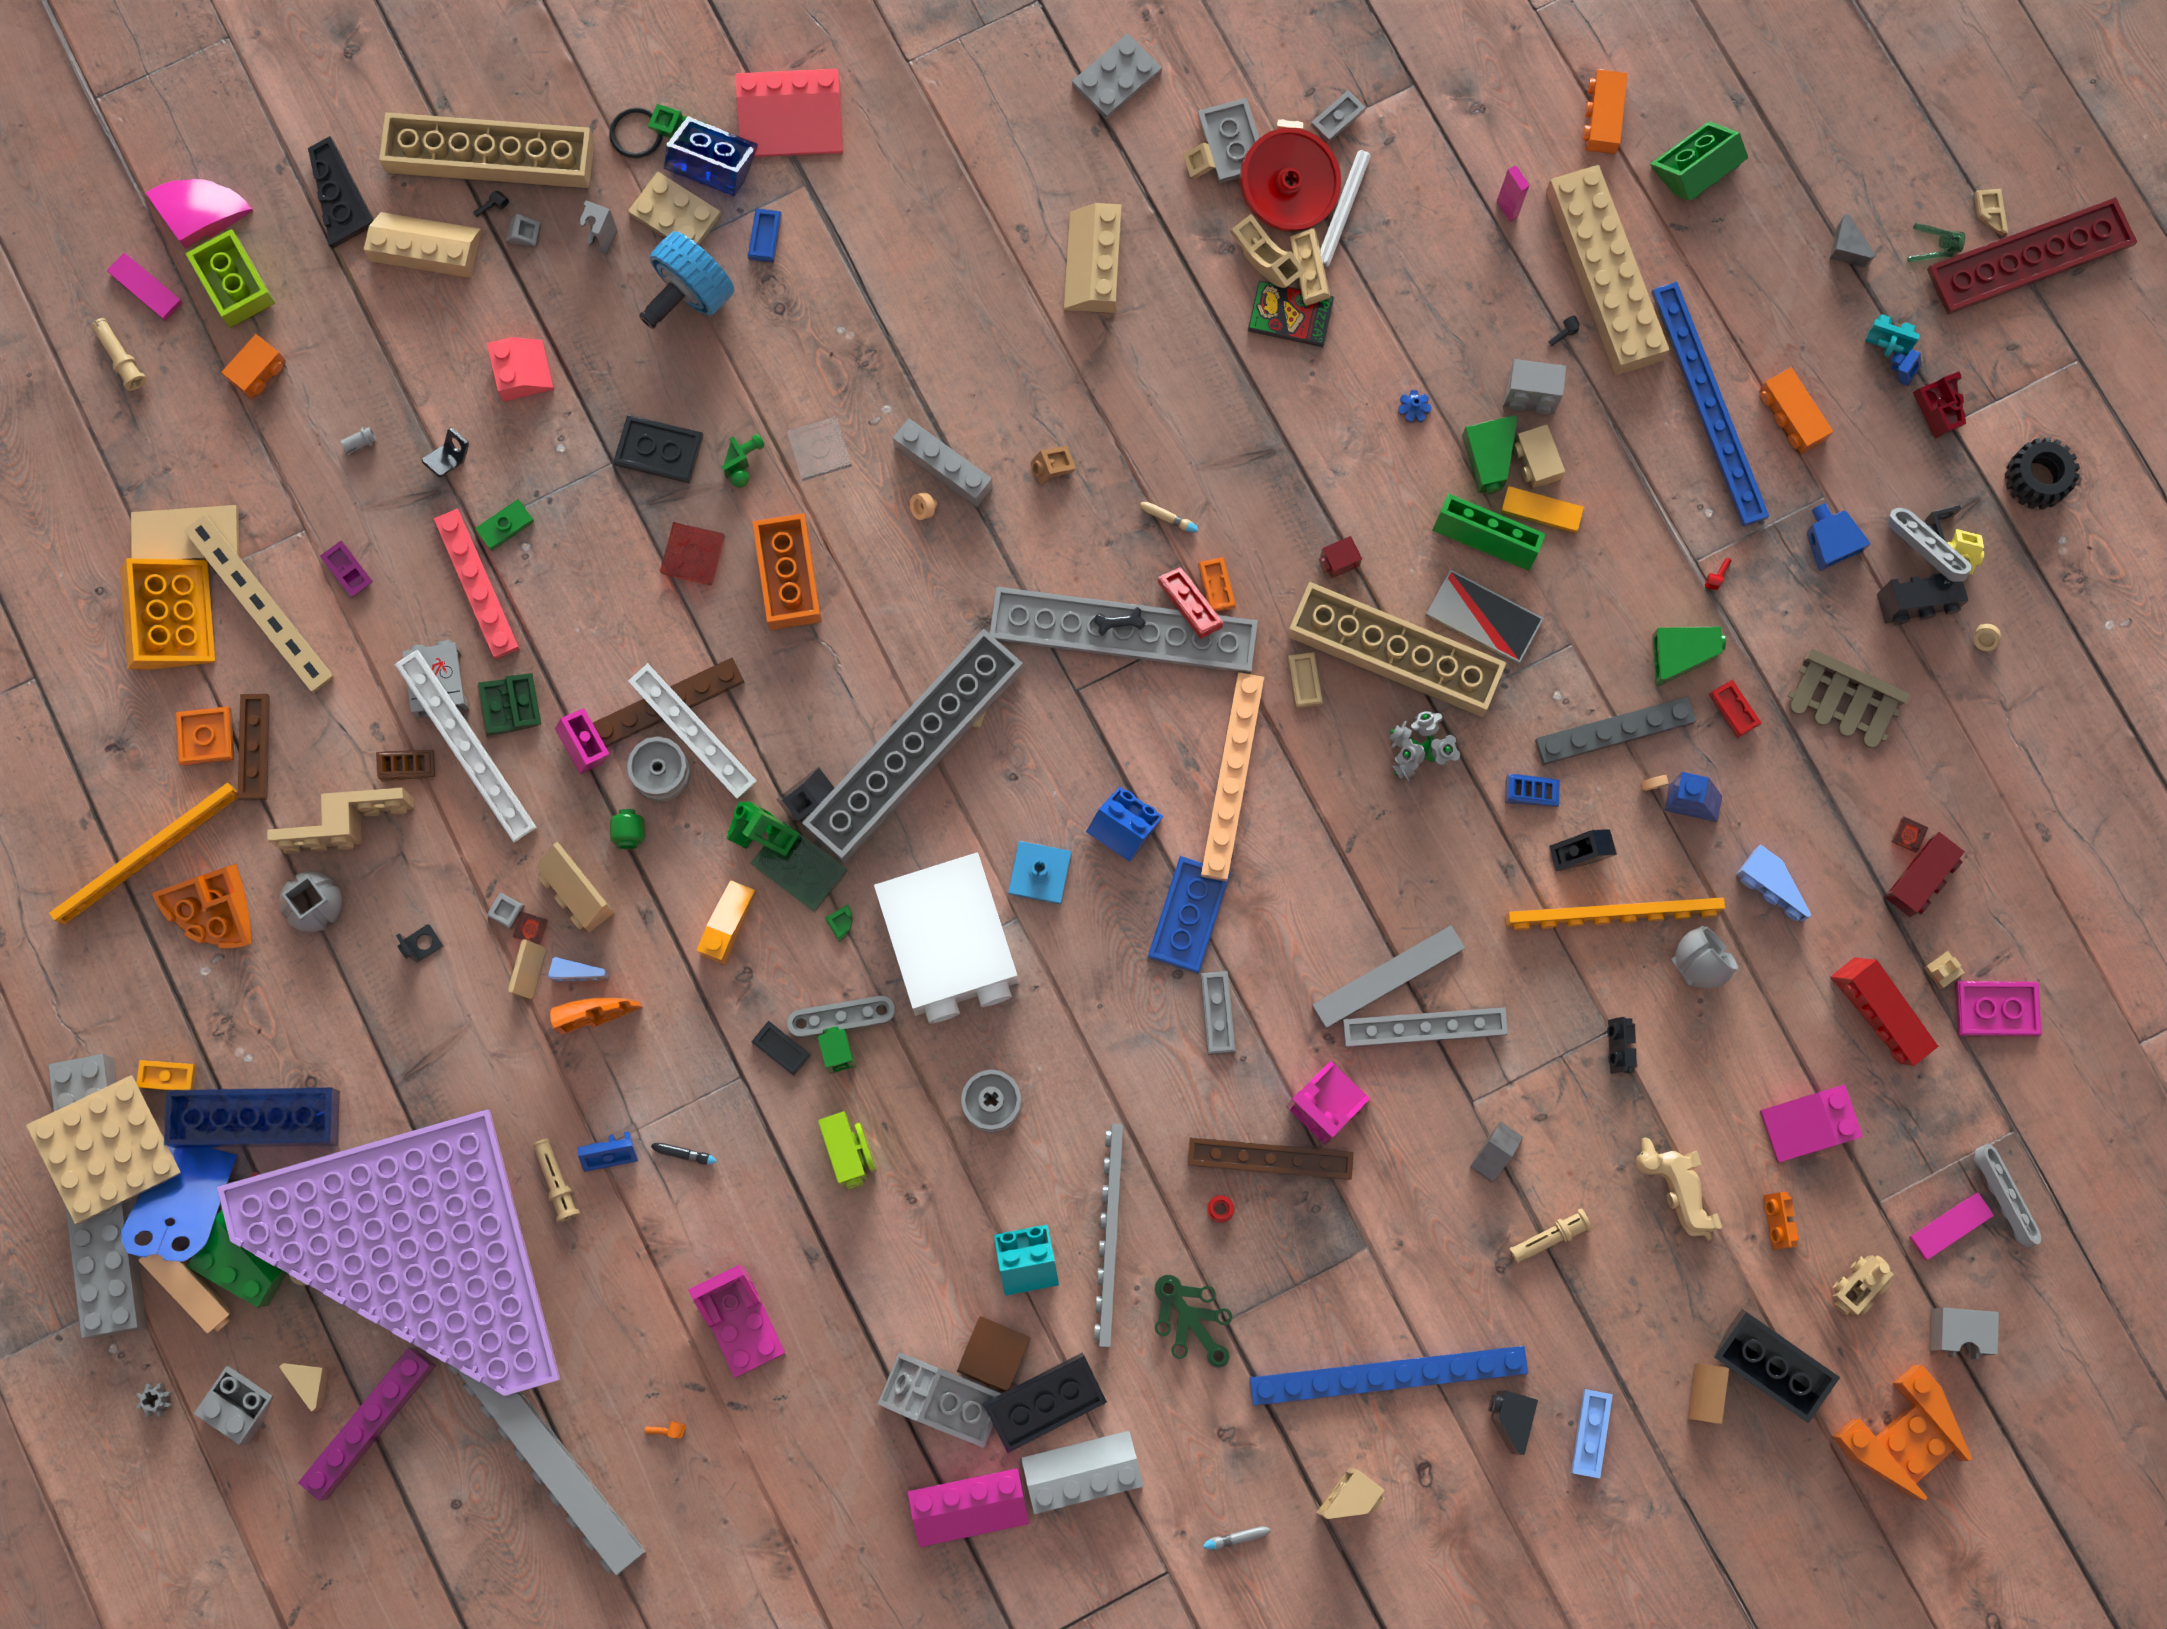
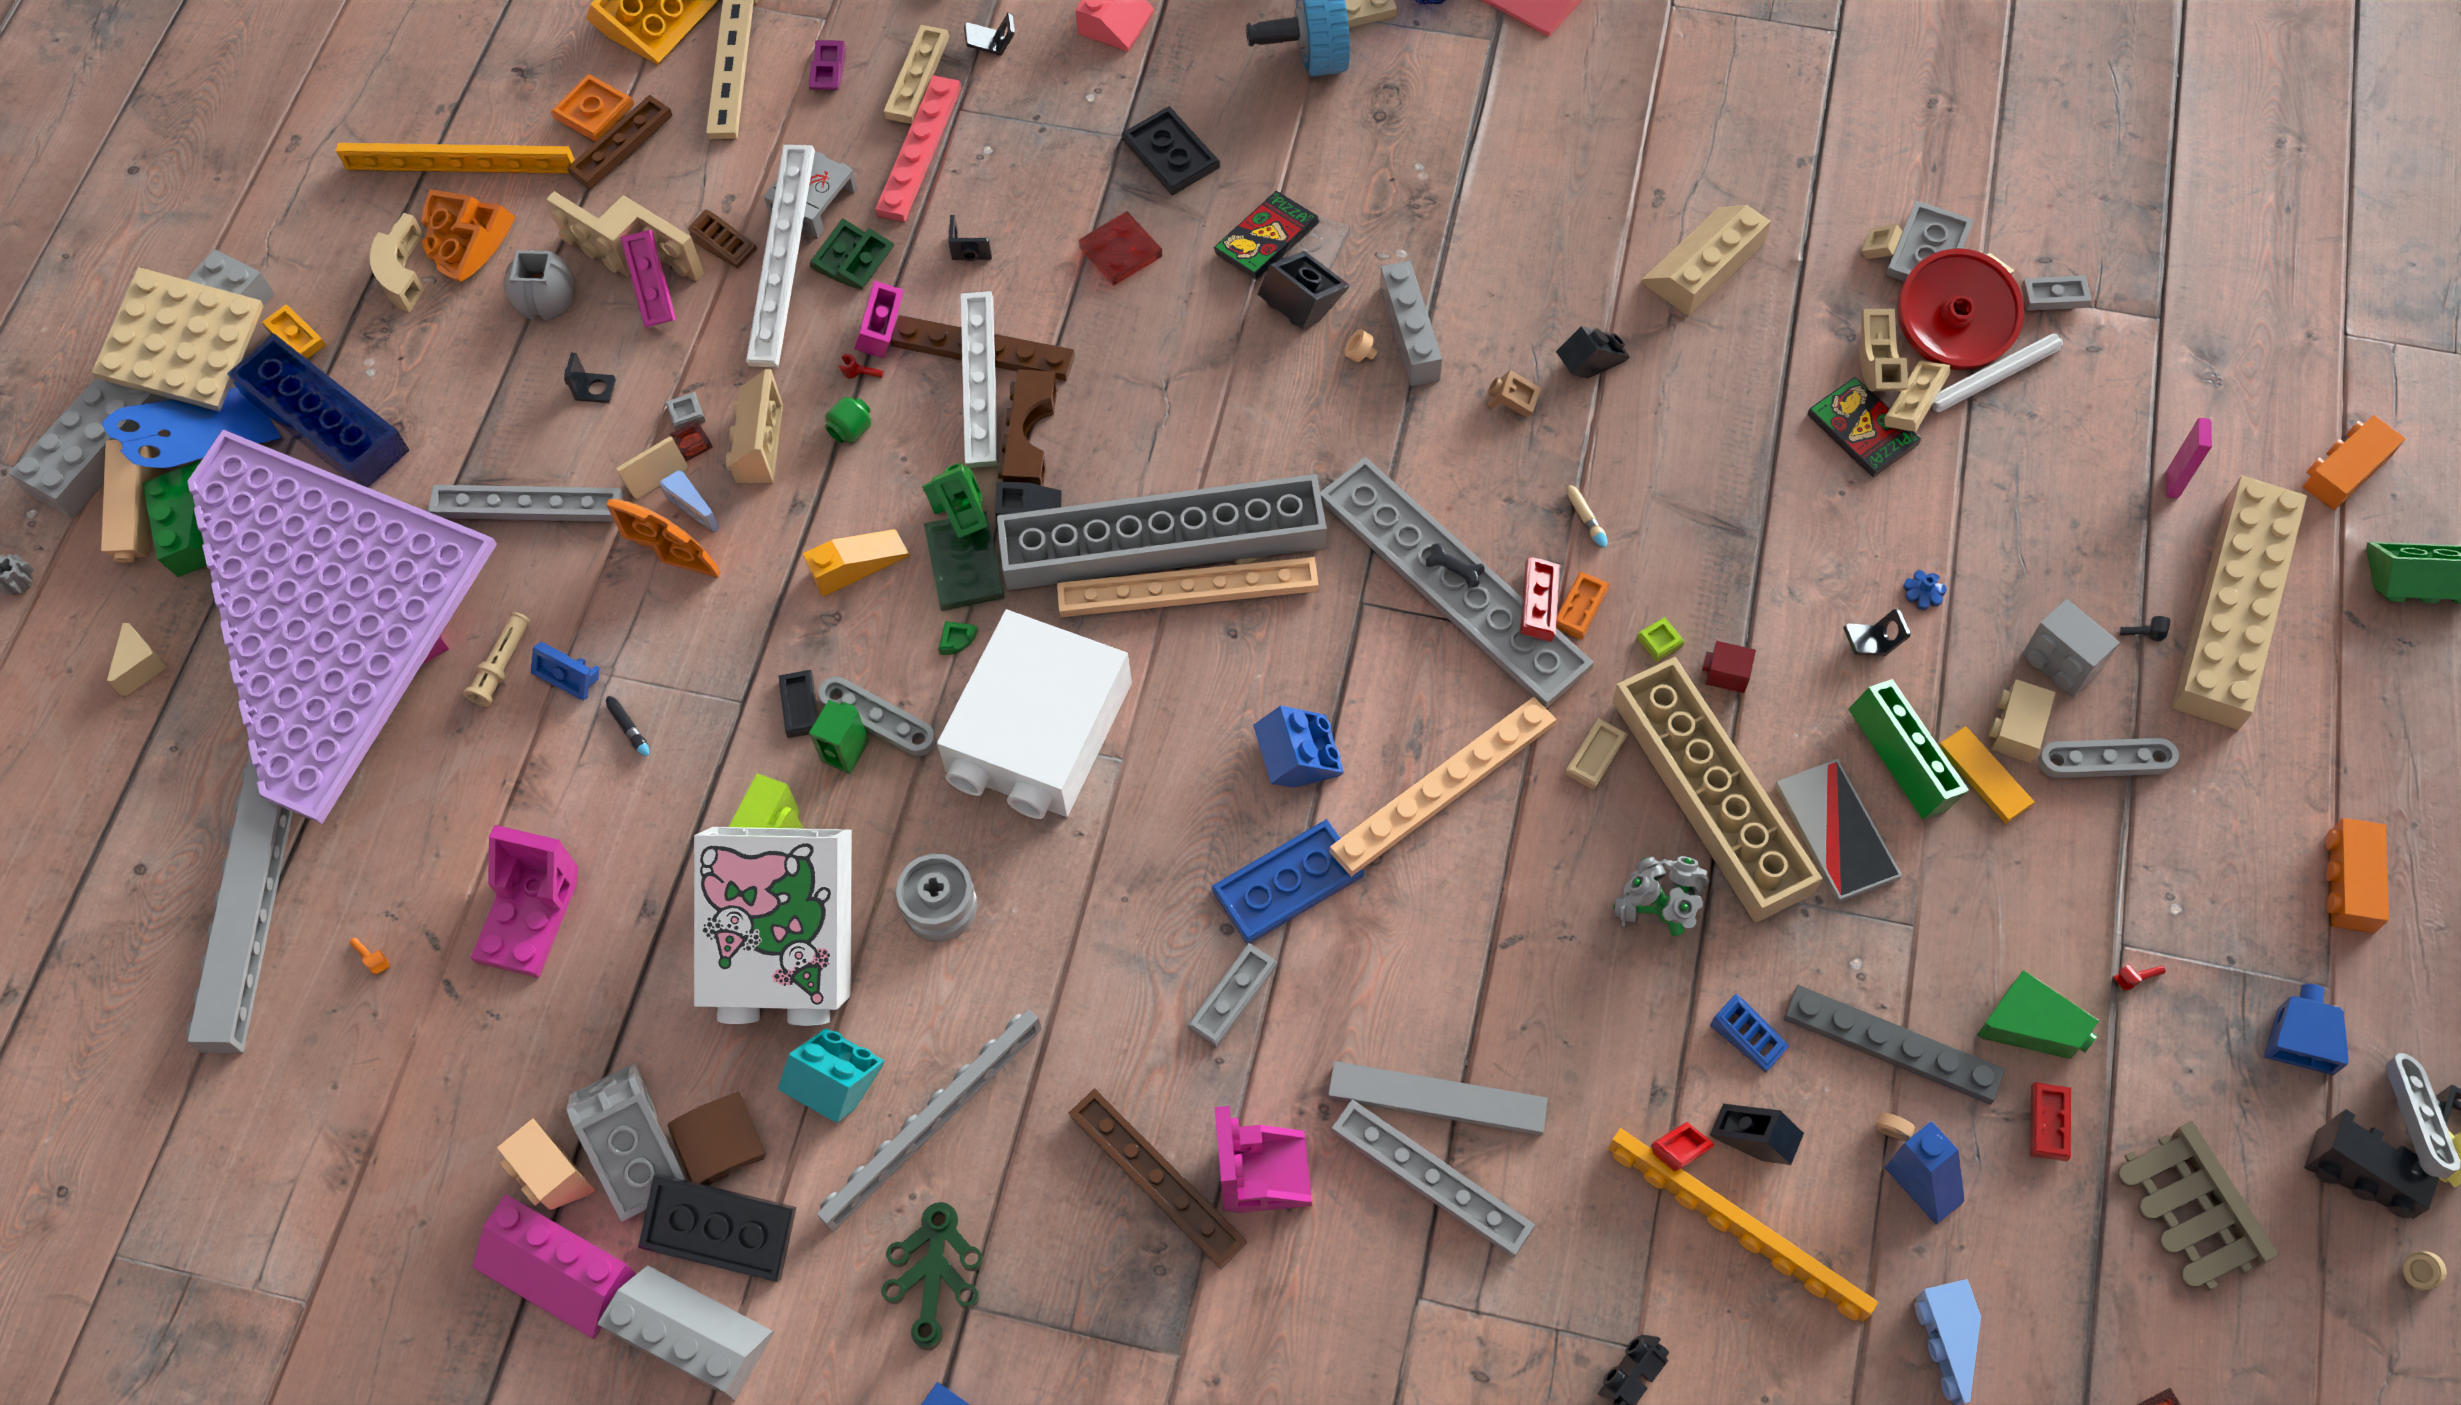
camera: 45 degrees right, 15 degrees down
(201, 981) = (388, 262): none -> tan arch
(235, 1406) = (56, 630): light grey slope -> none
(367, 1424) = (138, 733): magenta brick -> none
(391, 838) = (648, 278): none -> dark pink tile
(420, 526) = (916, 74): none -> tan plate
(463, 1063) = (522, 502): none -> light grey plate
(504, 525) = (985, 120): green plate -> none
(590, 639) = (967, 248): none -> black bracket
(596, 785) = (854, 368): none -> red hand
(653, 755) = (920, 388): light grey wheel -> none
(737, 461) = (1227, 201): green piece -> none
(764, 235) = (1419, 52): blue tile -> none
(776, 767) = (1033, 400): none -> reddish brown arch
(787, 468) = (1266, 235): none -> tile
(787, 571) = (1185, 311): orange brick -> none
(849, 491) = (1301, 289): none -> black slope
(914, 1458) = (542, 1167): none -> light nougat slope
(918, 1201) = (772, 922): none -> brick
(960, 770) = (1187, 587): none -> light nougat plate
(1039, 872) = (1178, 733): dark azure tile -> none
(1079, 393) = (1592, 352): none -> black slope
(1116, 76) = (1860, 130): light grey plate -> none
(1220, 1199) = (1057, 1177): red plate -> none
(1282, 569) = (1660, 639): none -> lime tile
(1410, 468) = (1874, 638): none -> black bracket
(1490, 452) = (1974, 680): green slope -> none
(1497, 1151) = (1400, 1369): flat silver slope -> none
(1550, 894) = (1681, 1146): none -> red tile
(1605, 442) = (2108, 757): none -> light grey plate
(1703, 959) = (1802, 1349): light grey piece -> none
(1710, 404) = (2259, 806): blue plate -> none

